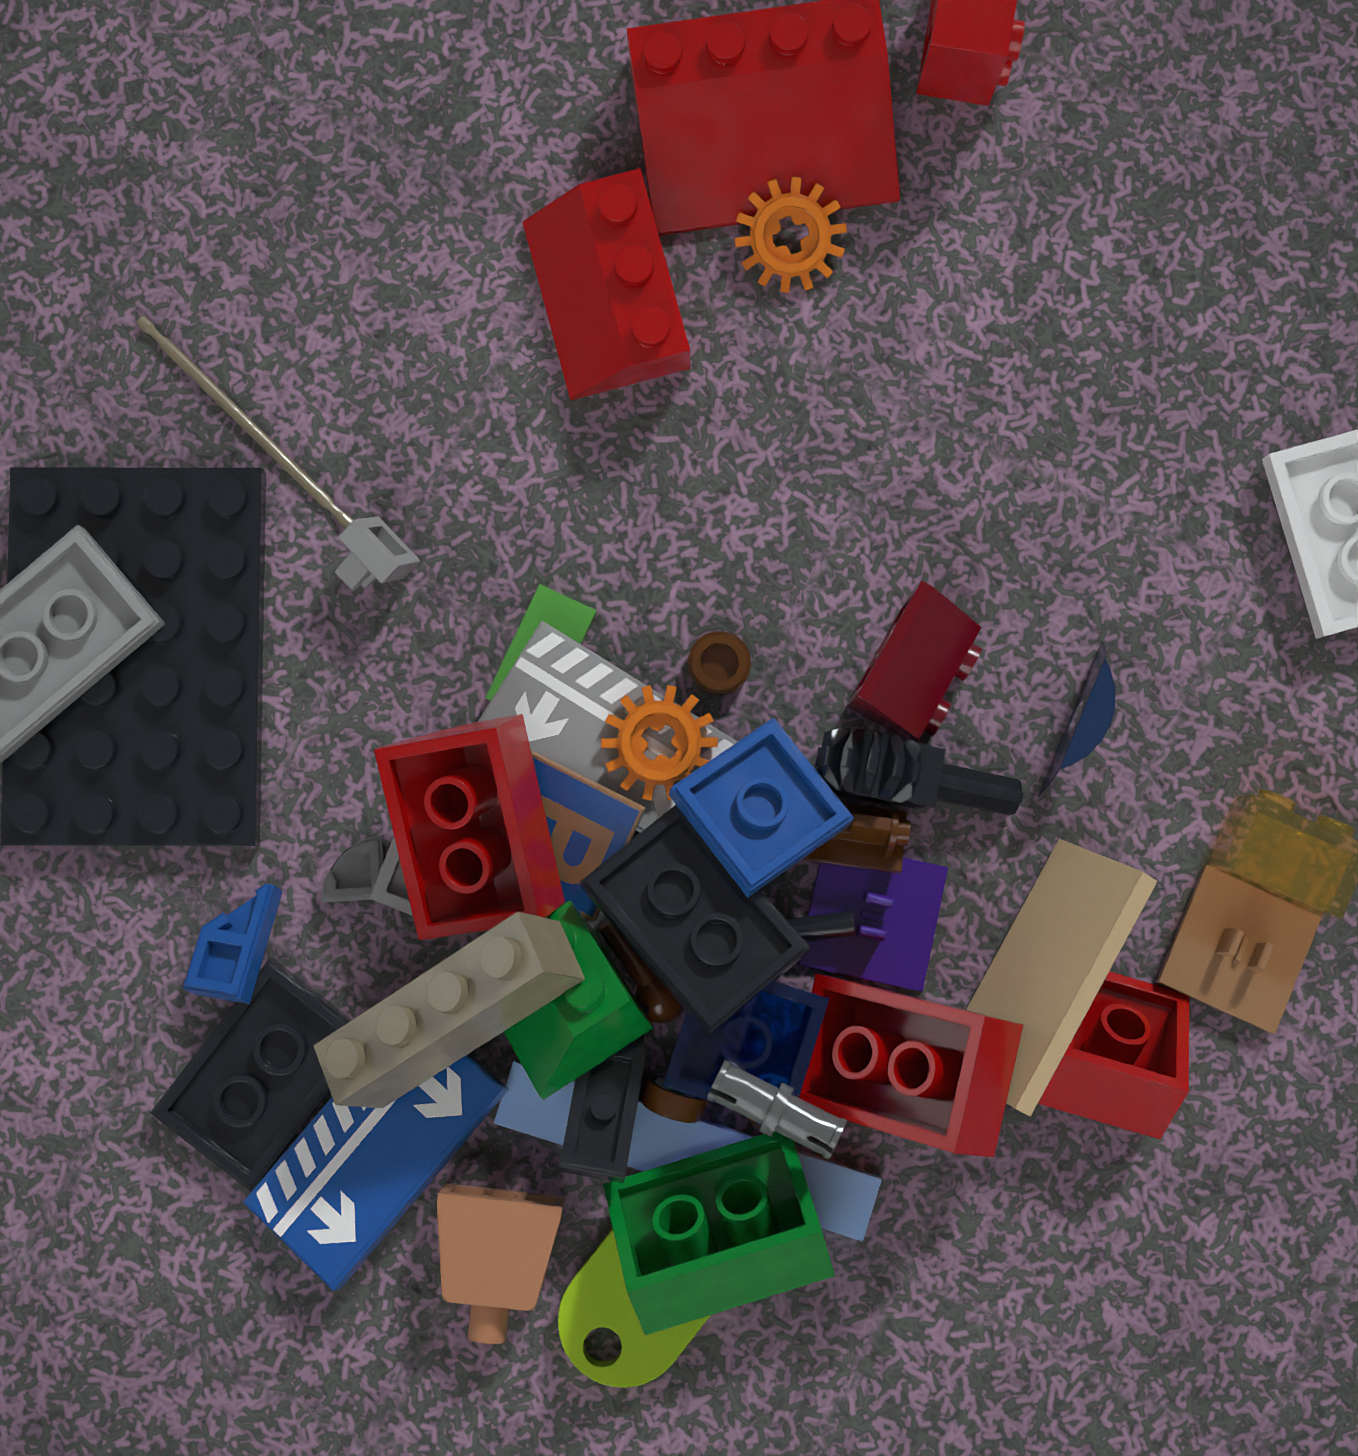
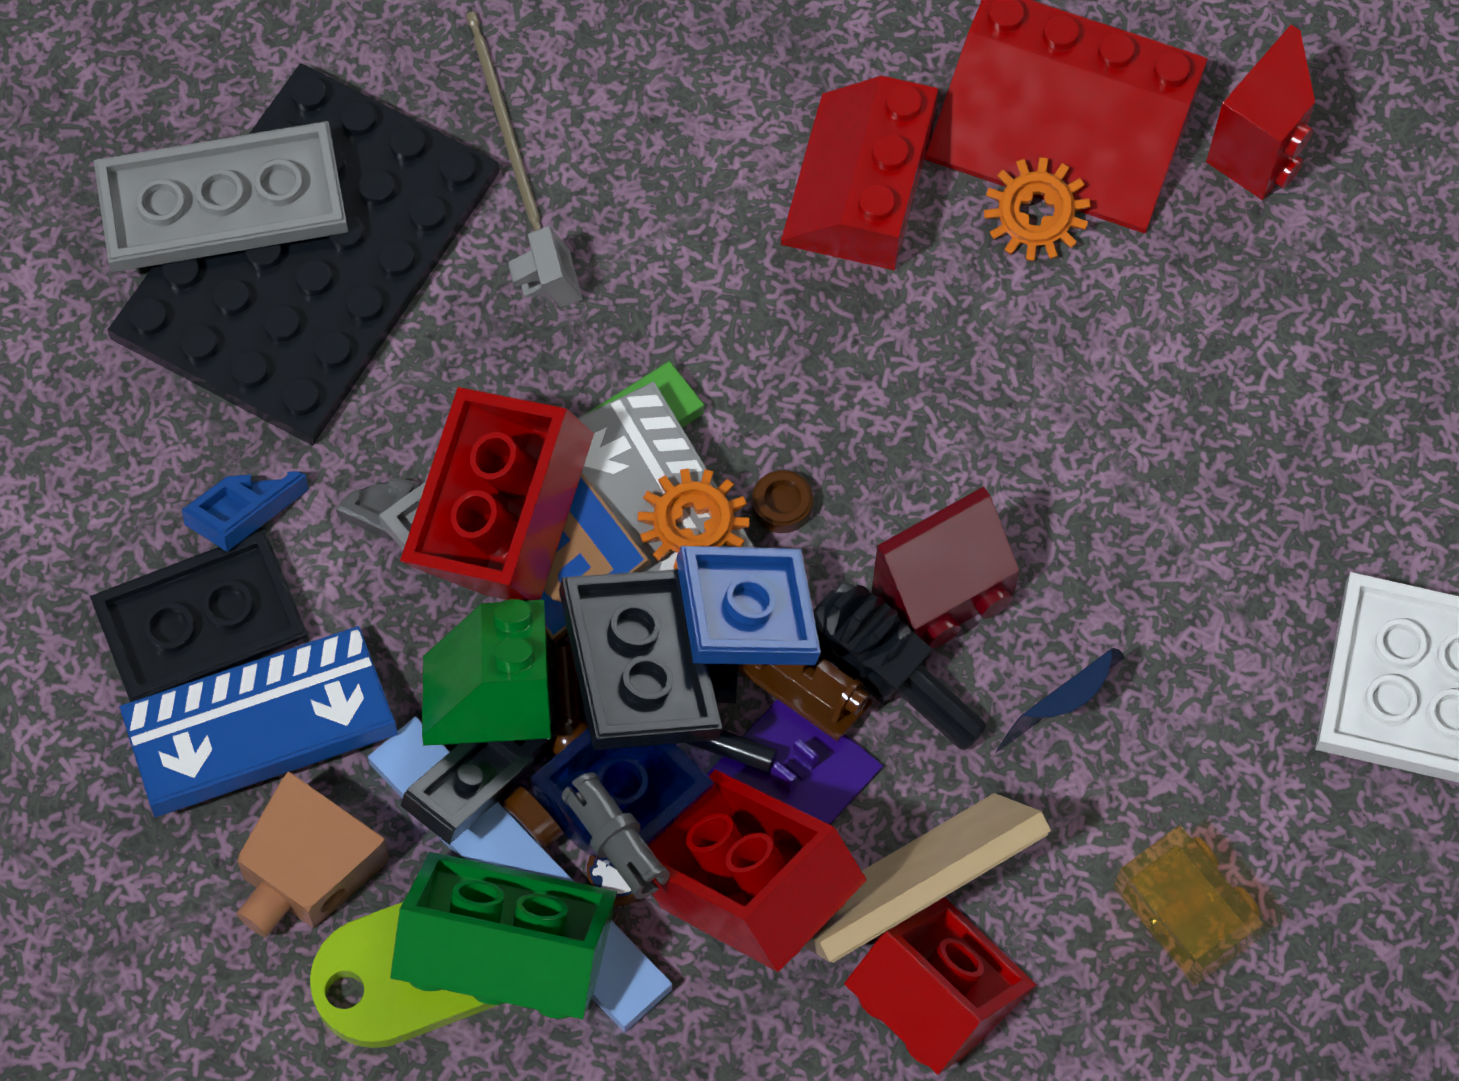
camera: 25 degrees right, 20 degrees down
(449, 1011) = (390, 617): dark tan brick -> none
(1239, 949) = (1102, 970): medium nougat piece -> none

